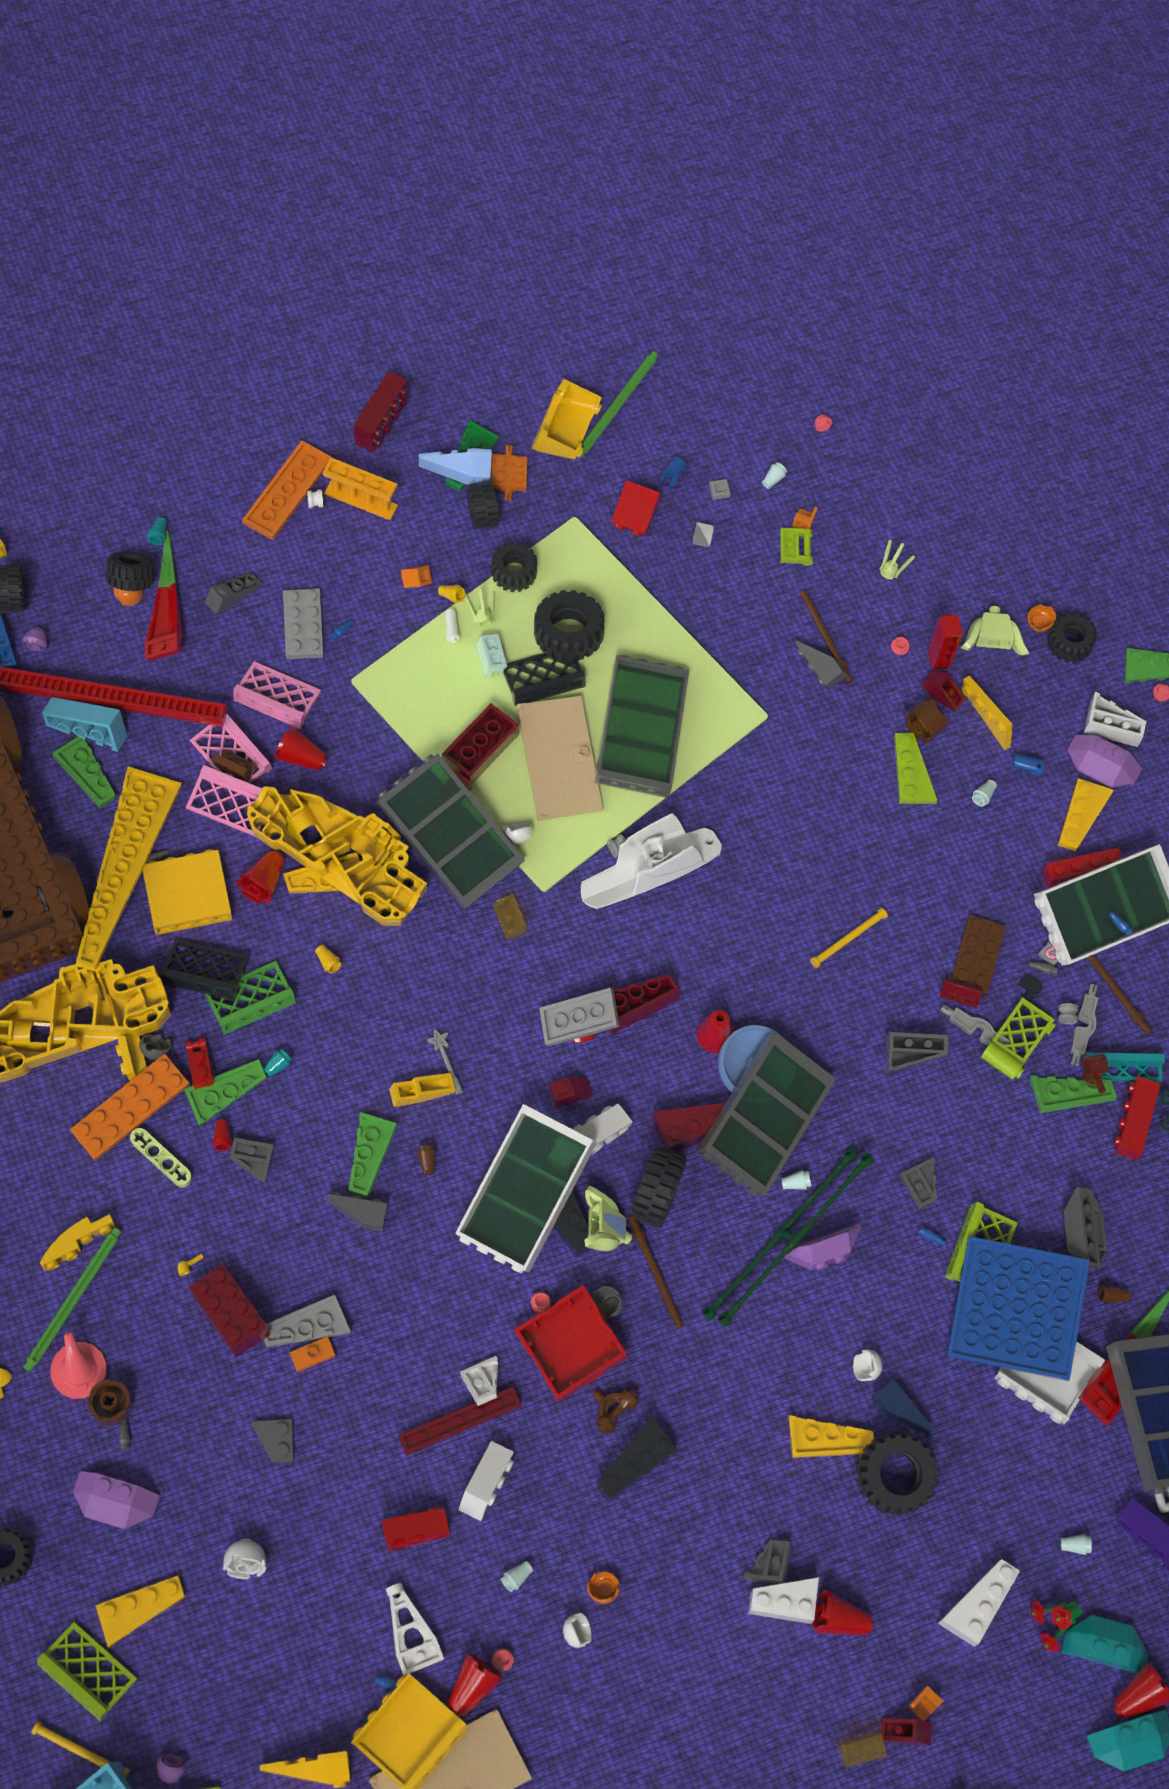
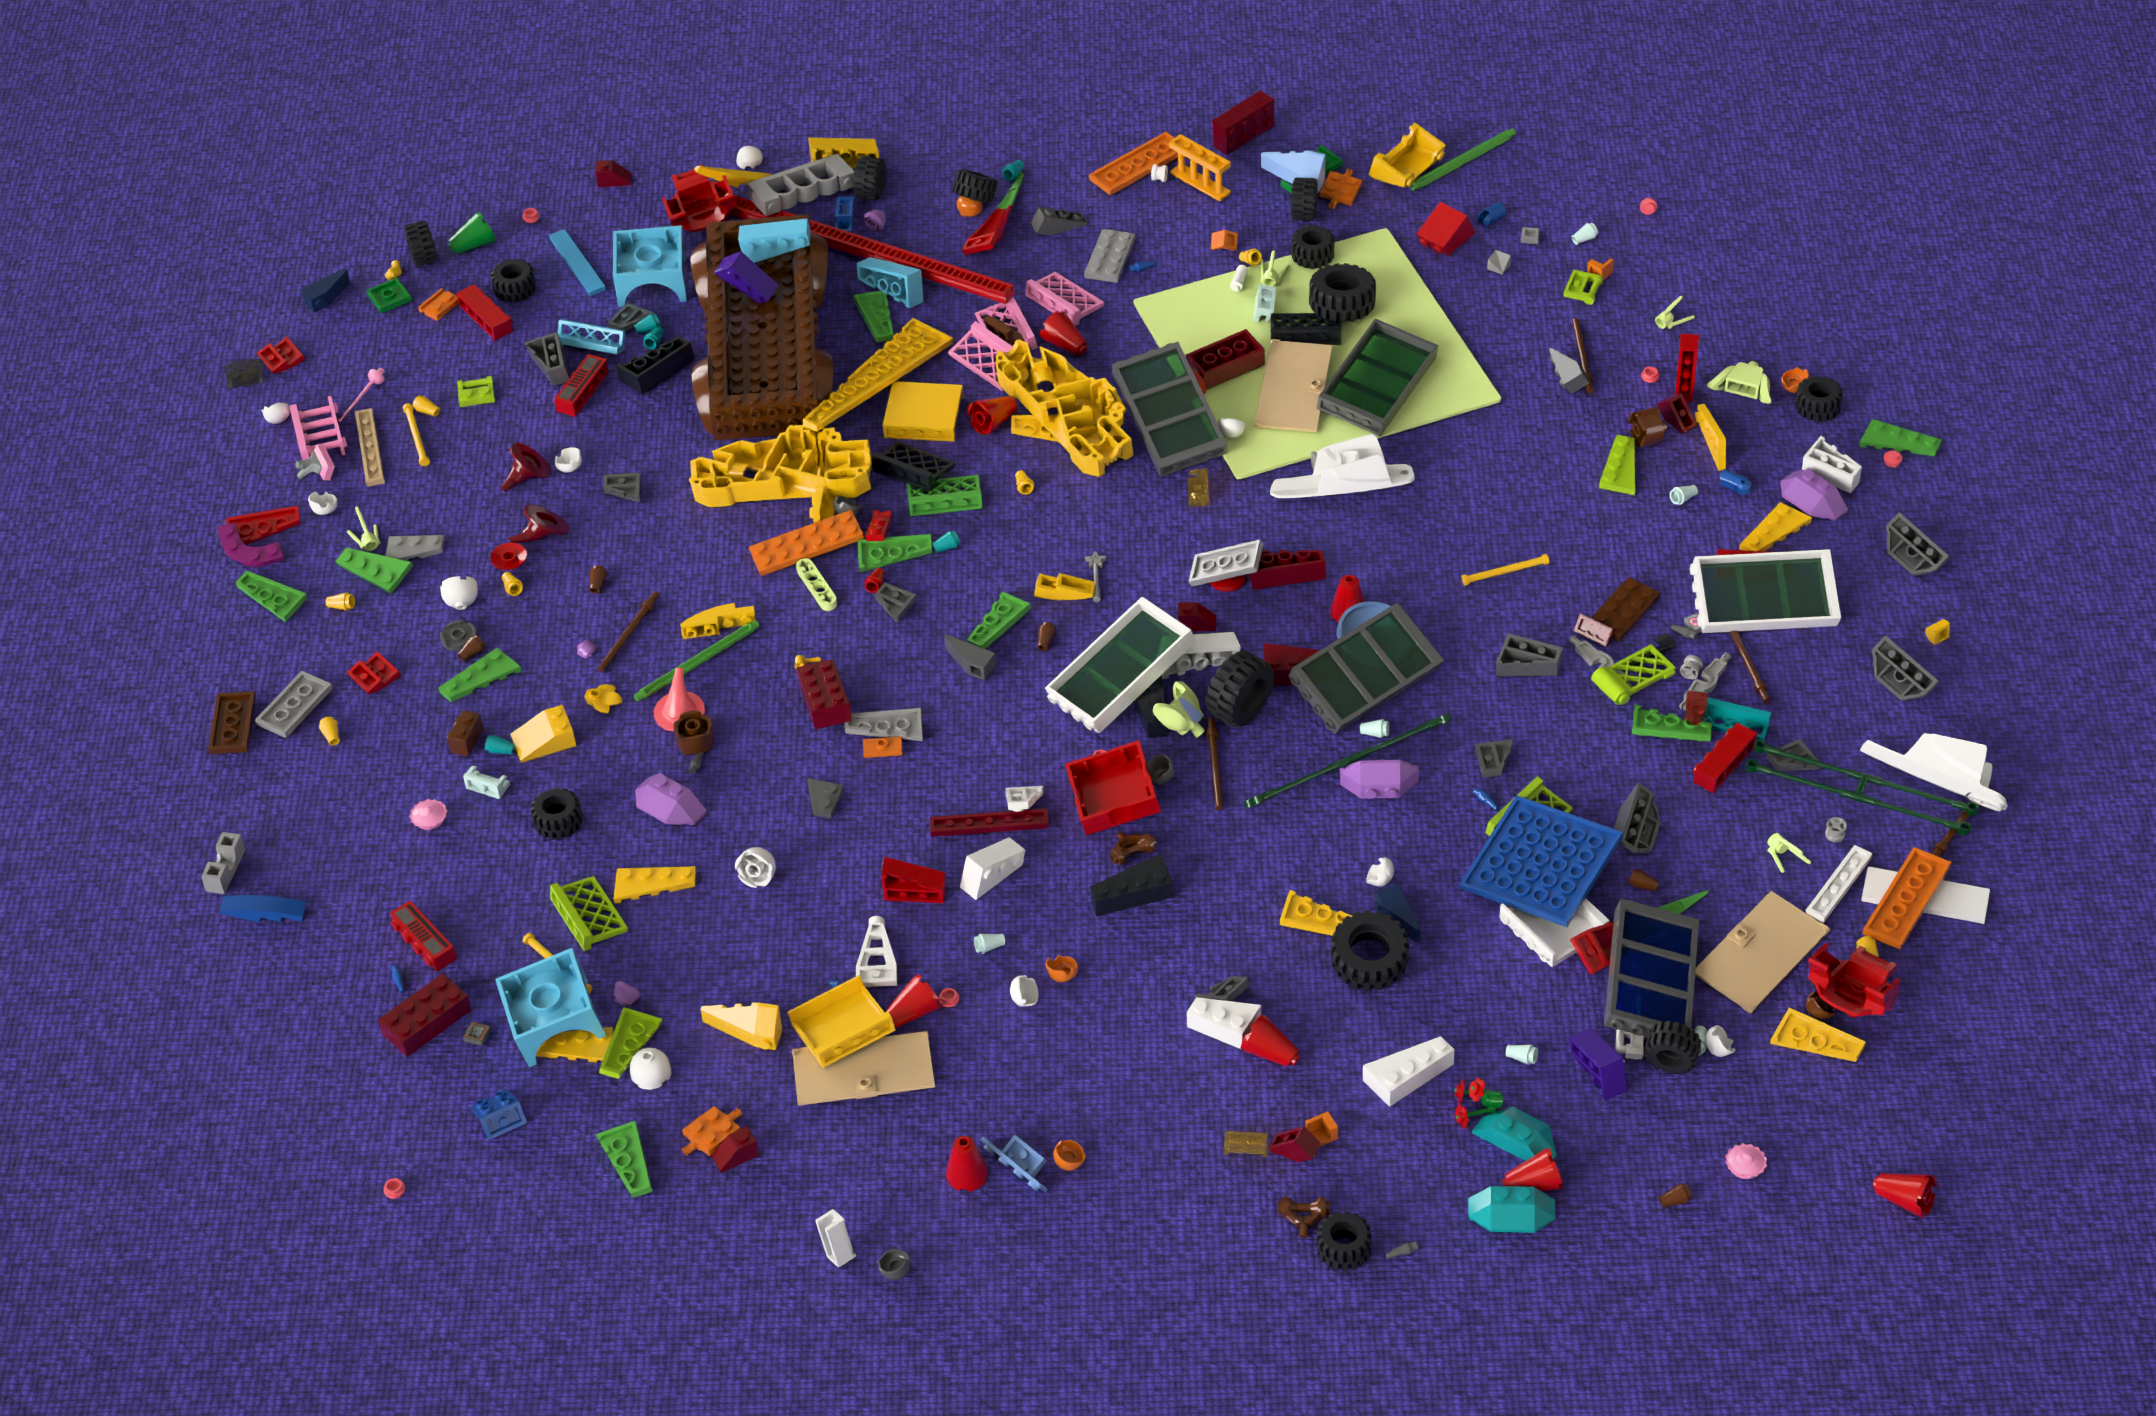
camera: 30 degrees right, 20 degrees down
(1121, 924) = (1769, 606): blue piece -> none

